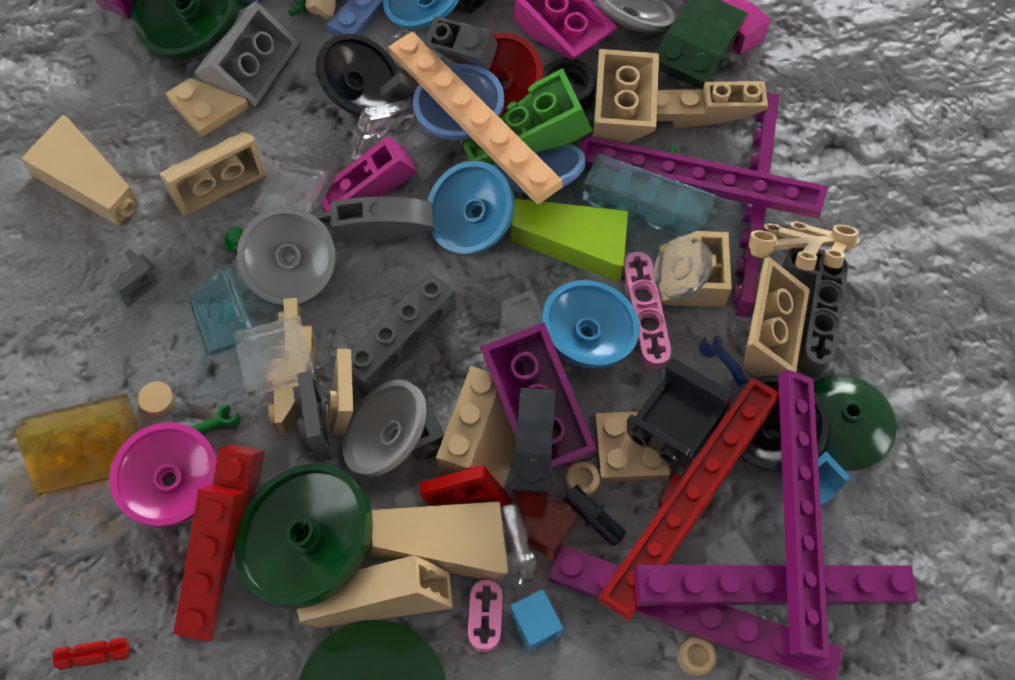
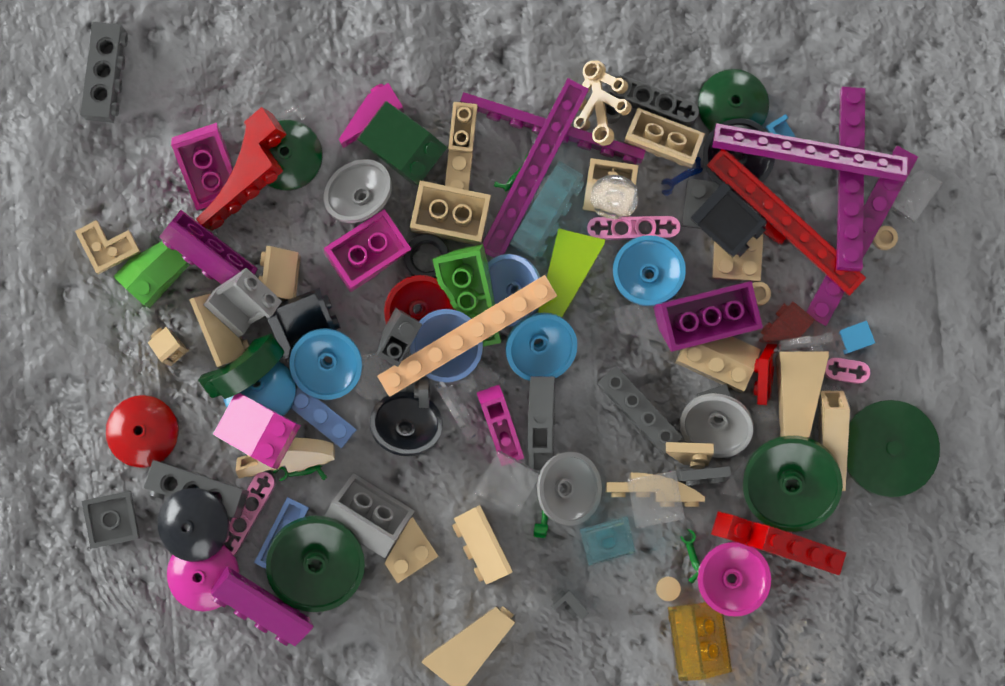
camera: 80 degrees left, 20 degrees up
(91, 653) = (846, 629): red axle -> none
(534, 442) = (747, 322): black slope -> none
(594, 515) = (787, 290): black axle -> none

